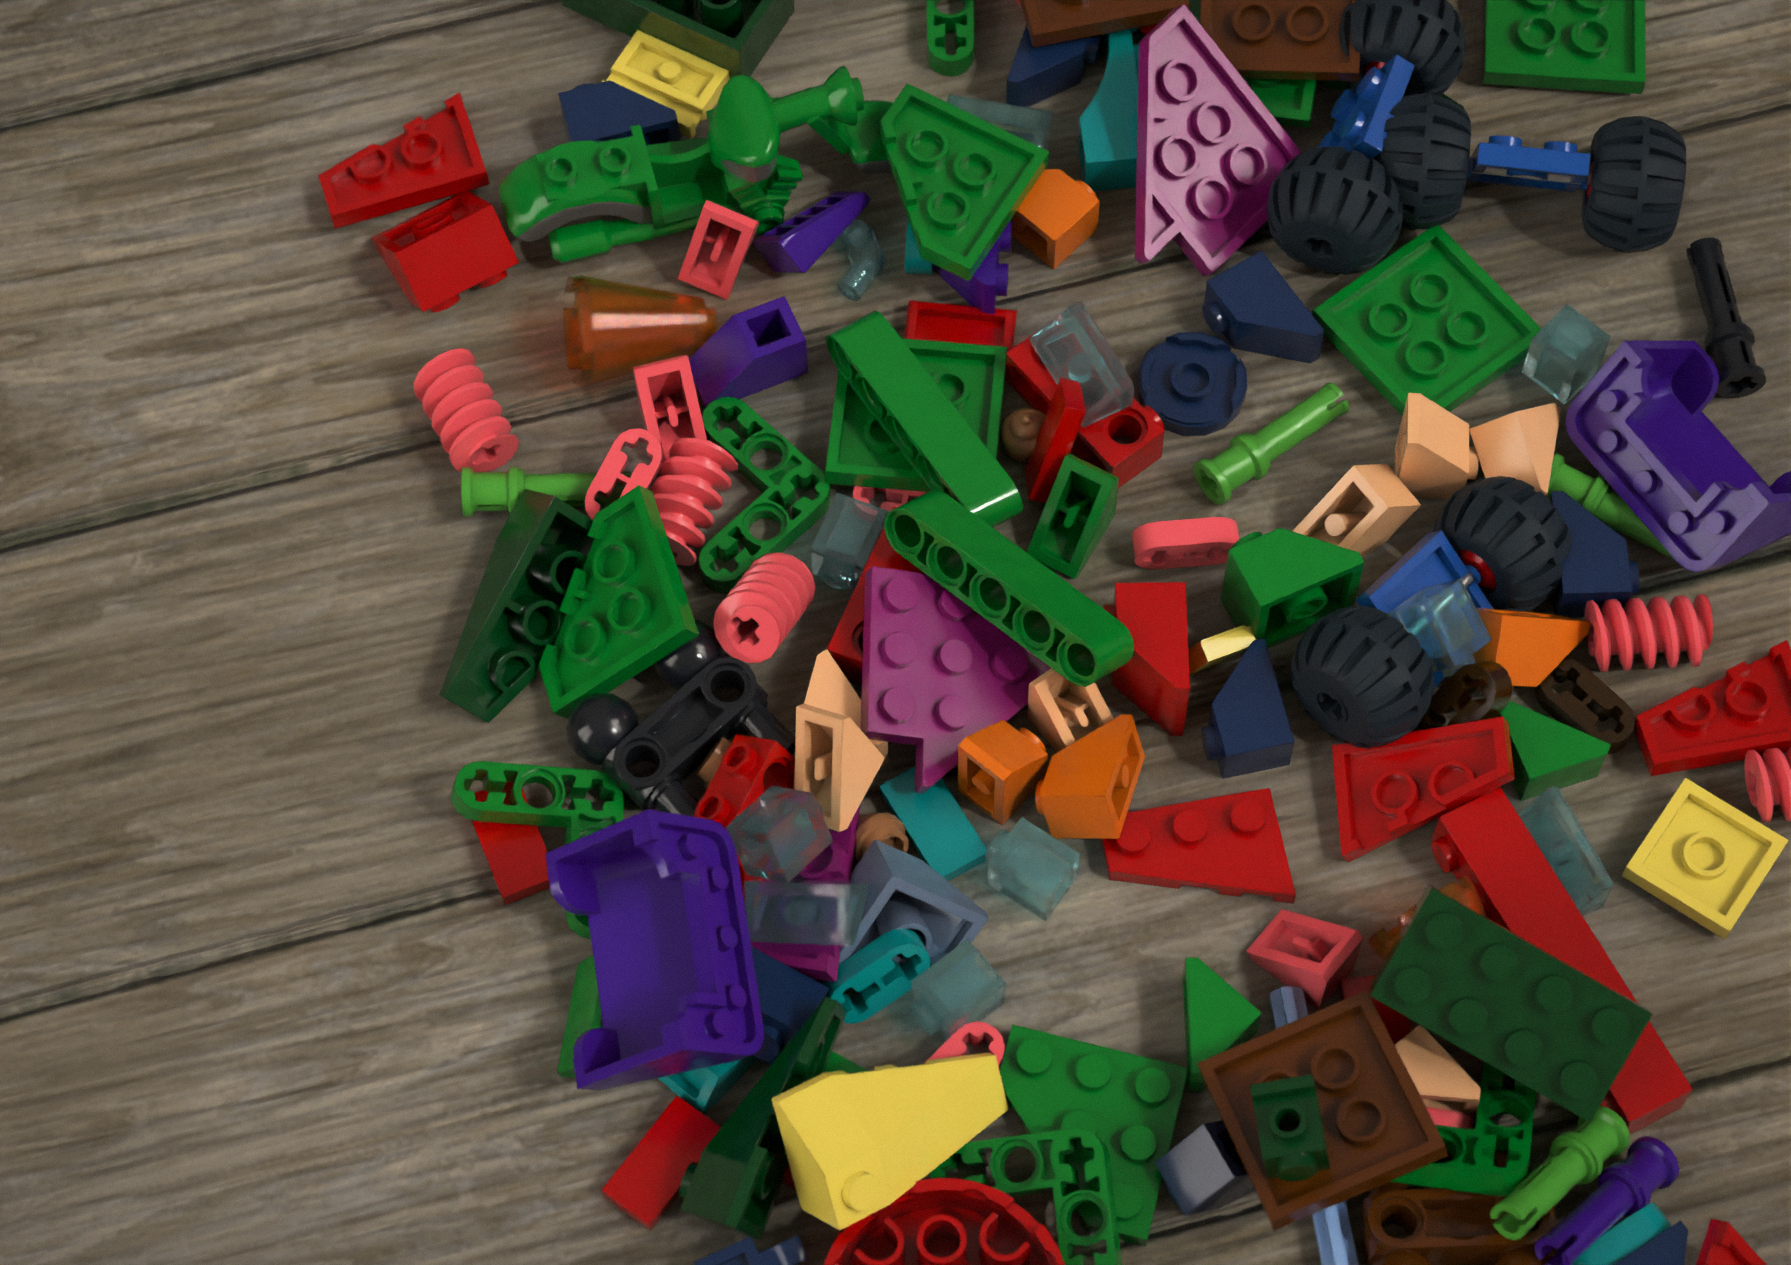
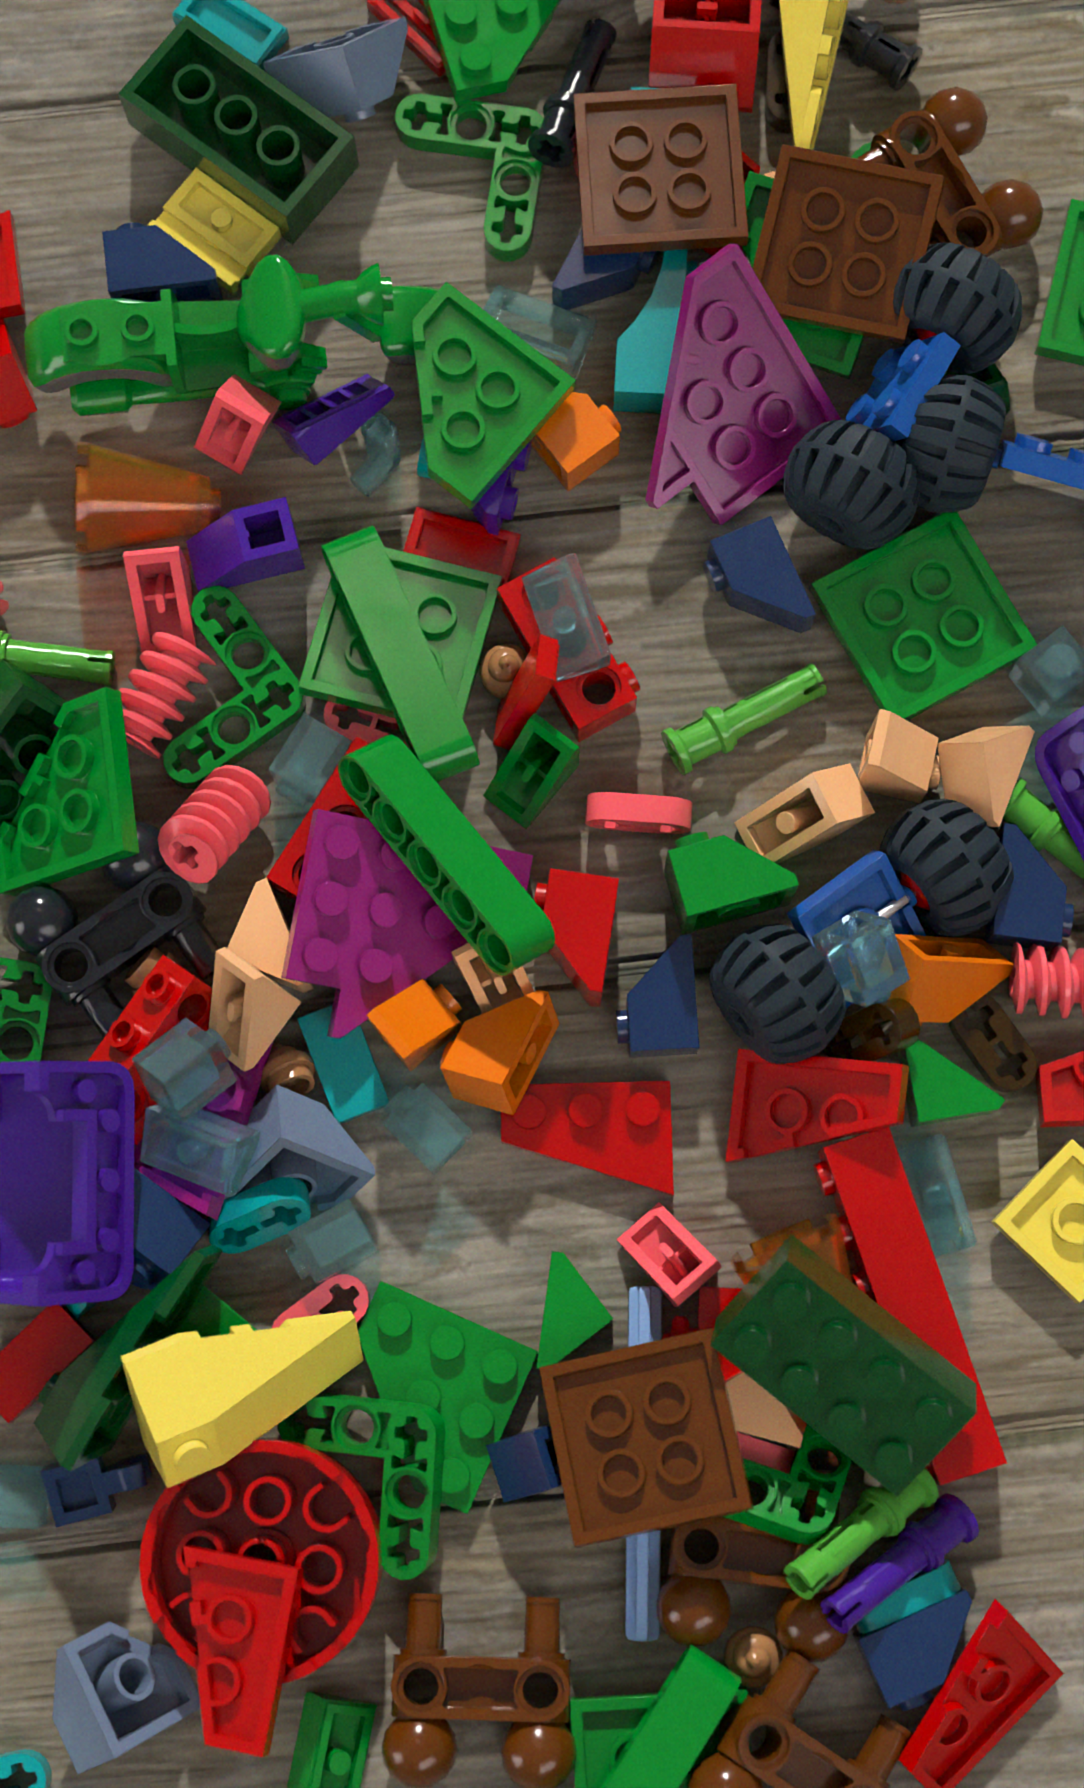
camera: 10 degrees right, 15 degrees up
(615, 464) = (90, 653): coral beam -> none
(1192, 383) = (679, 639): dark blue tile -> none
(1219, 648) = (639, 934): light yellow tile -> none
(1288, 1105) = (625, 1447): dark green brick -> none

